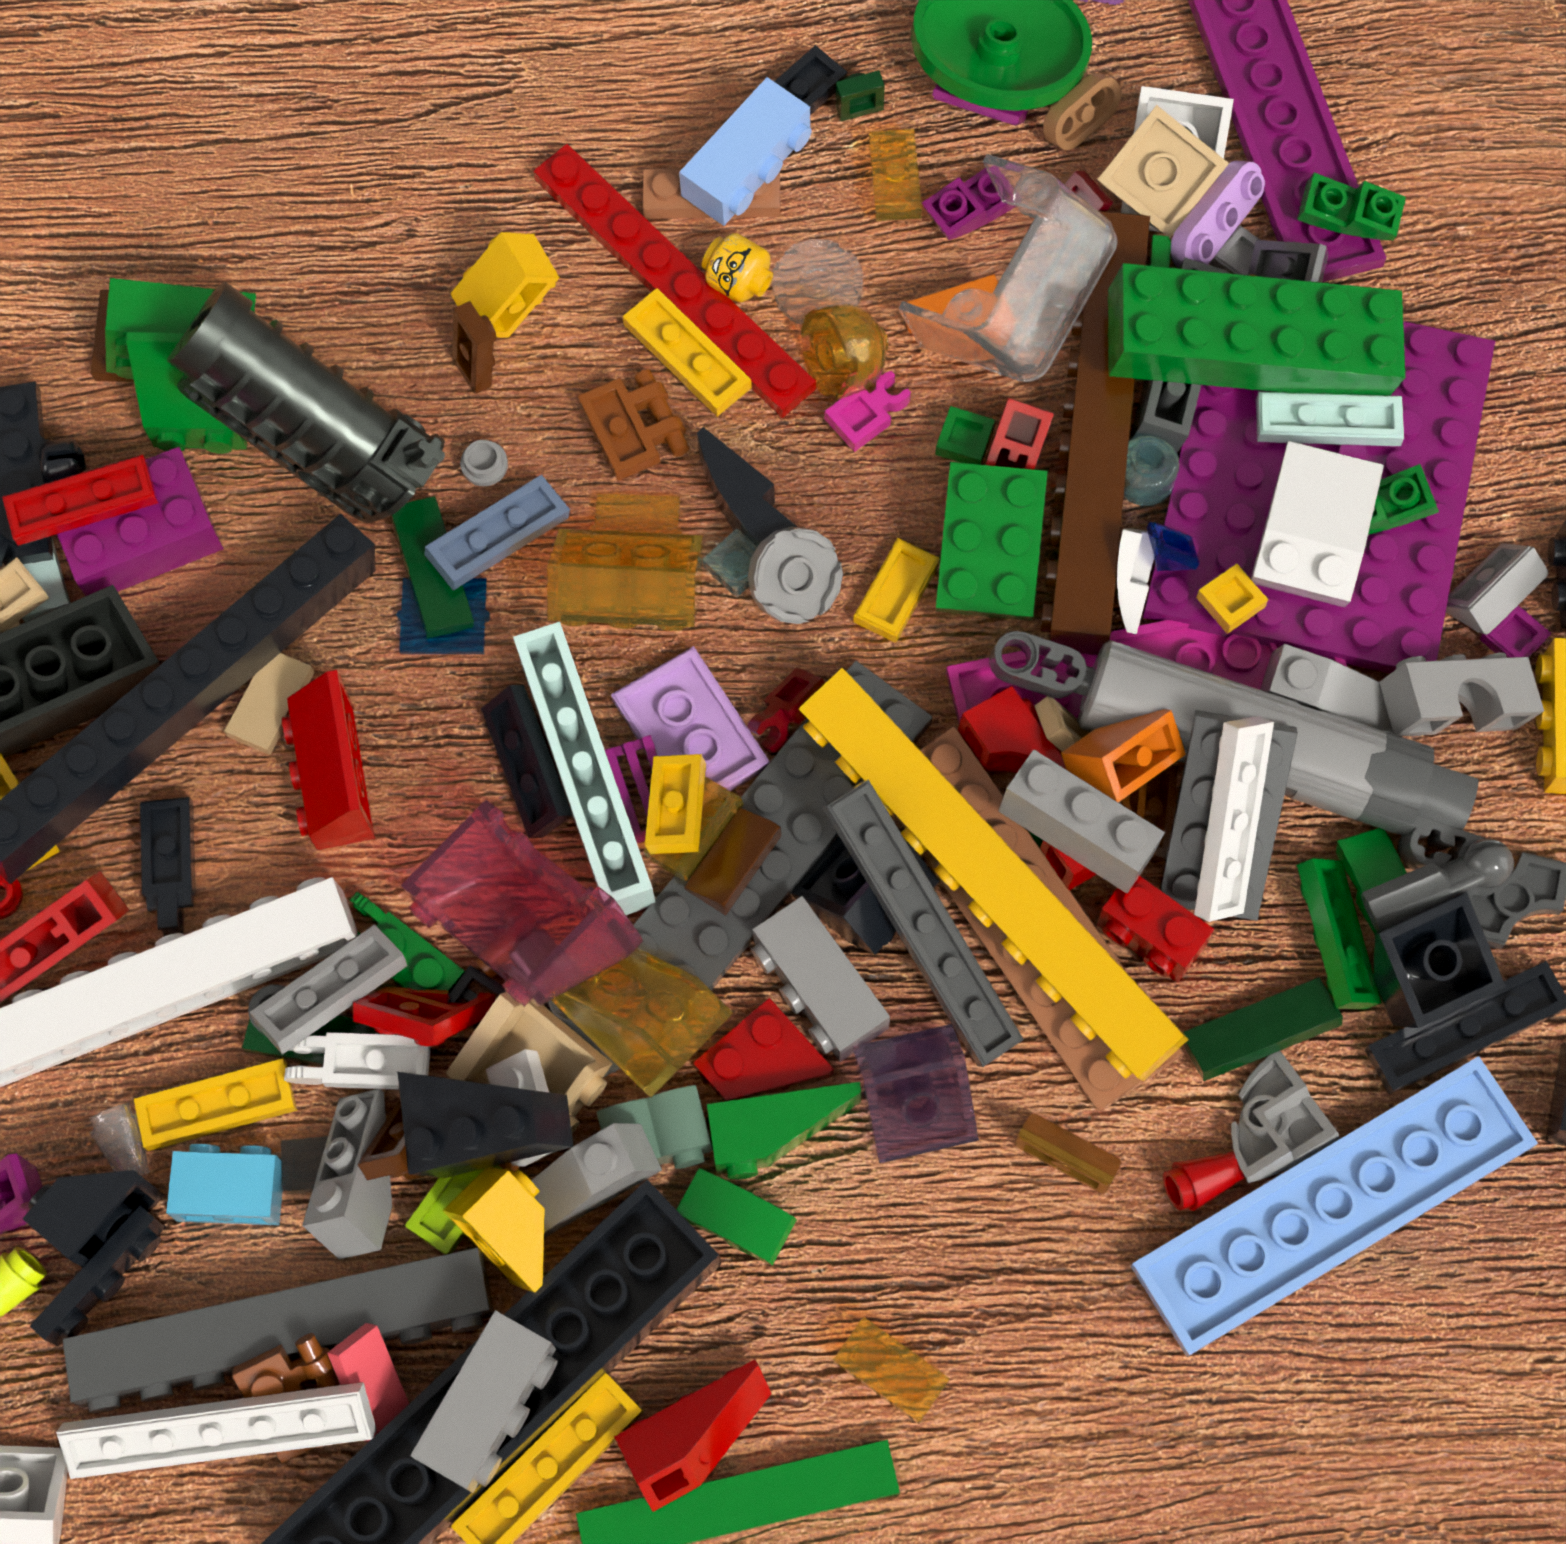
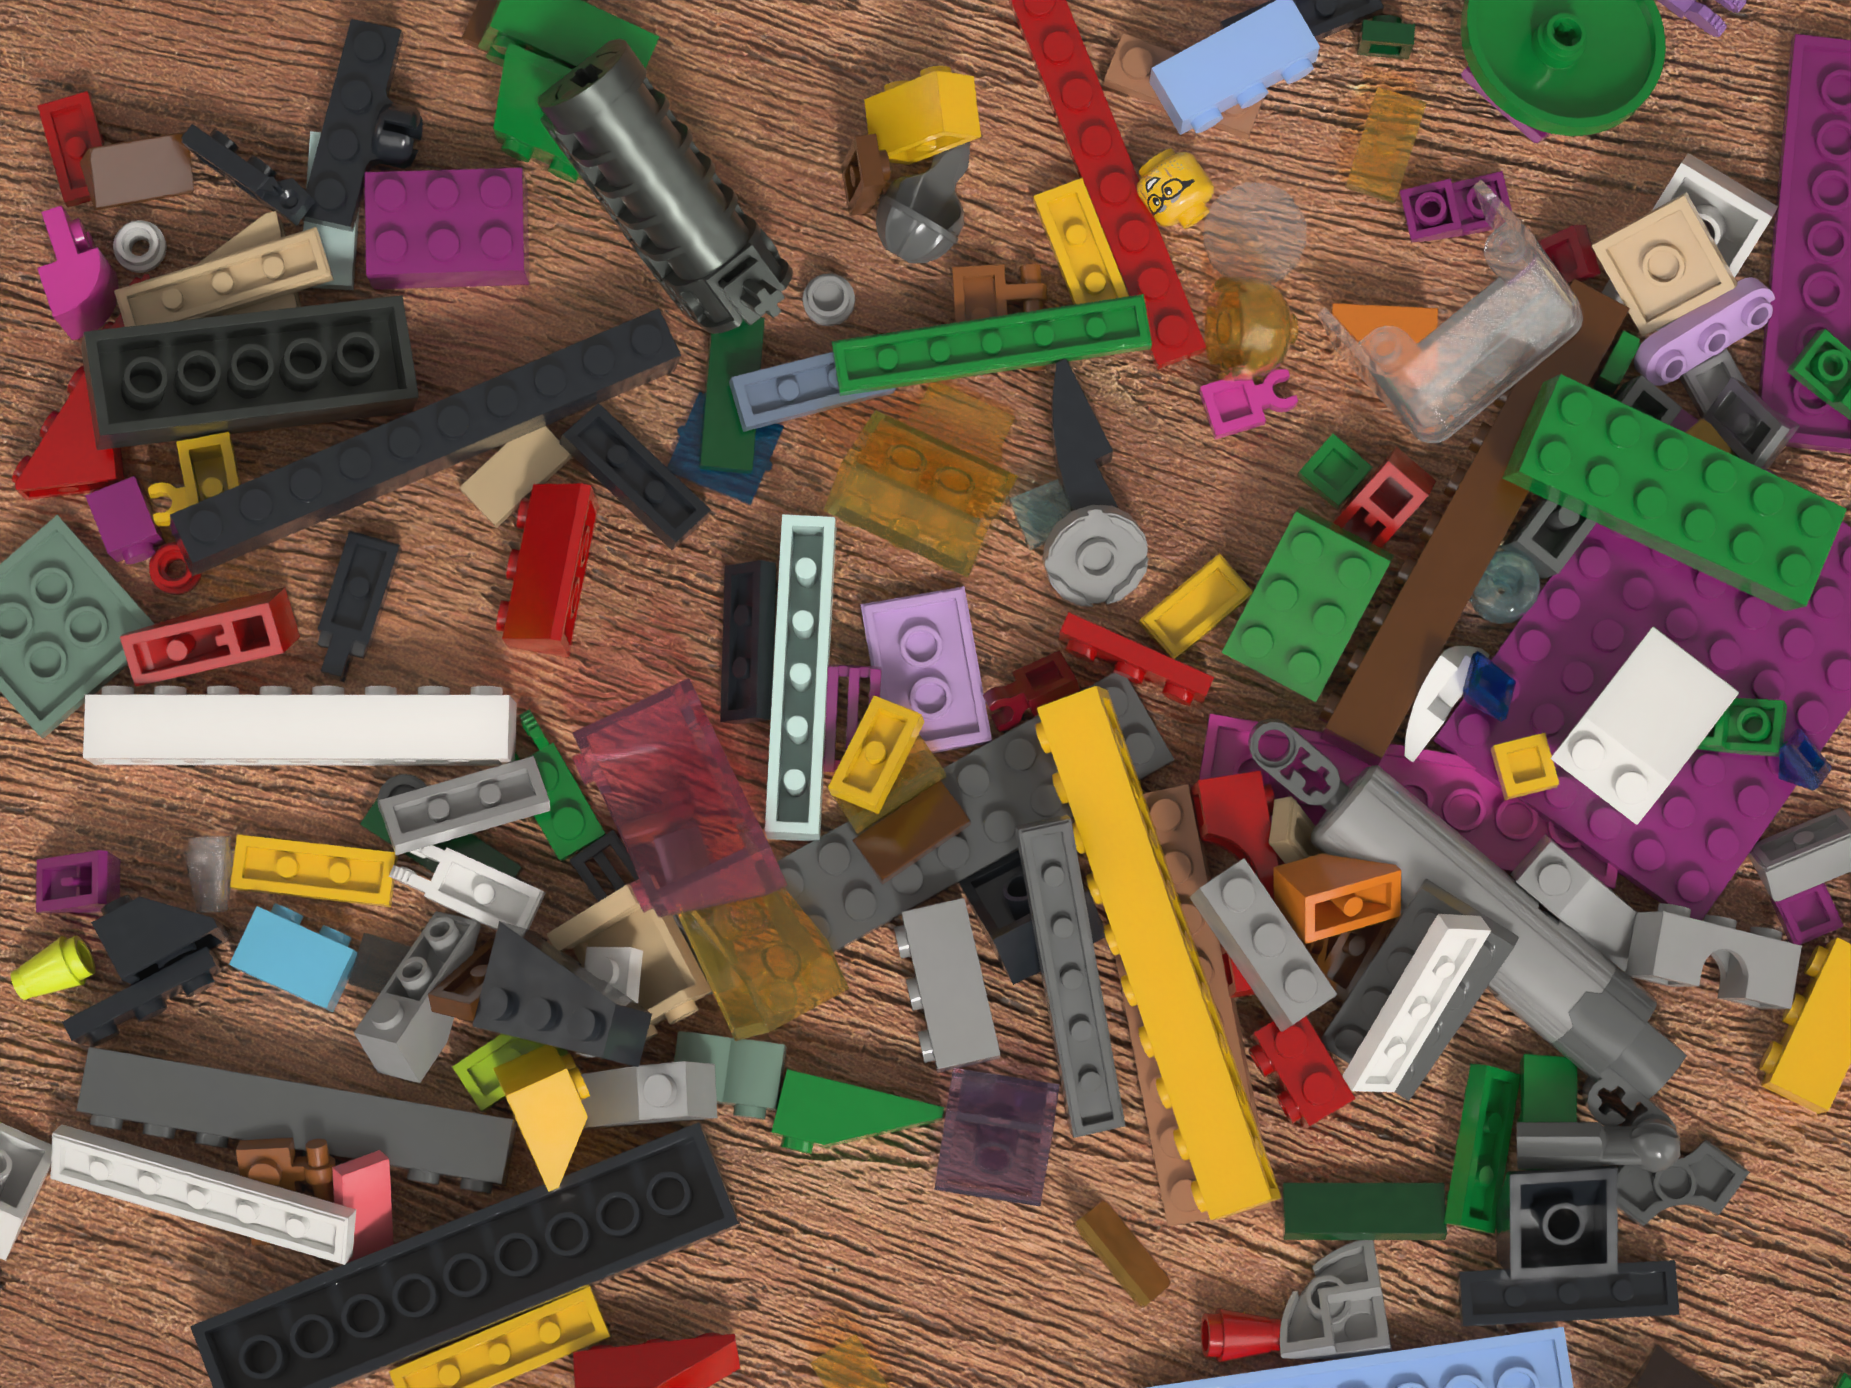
camera: 20 degrees right, 10 degrees up
(80, 500) = (401, 192): red tile -> none
(374, 663) = (635, 476): none -> black plate
(419, 1013) = (545, 866): red wing -> none
(486, 1403) = (463, 1278): light grey brick -> none
(535, 365) = (922, 212): none -> dark grey piece
(635, 442) = (991, 345): none -> green tile
(736, 1216) = (772, 1186): green slope -> none
(761, 1057) = (862, 1038): red wing -> none
(864, 647) = (1134, 660): none -> red plate
(1081, 111) = (1614, 152): medium nougat plate -> none
(1329, 419) = (1717, 609): light aqua tile -> none
(1457, 510) = (1802, 762): none -> clear blue slope

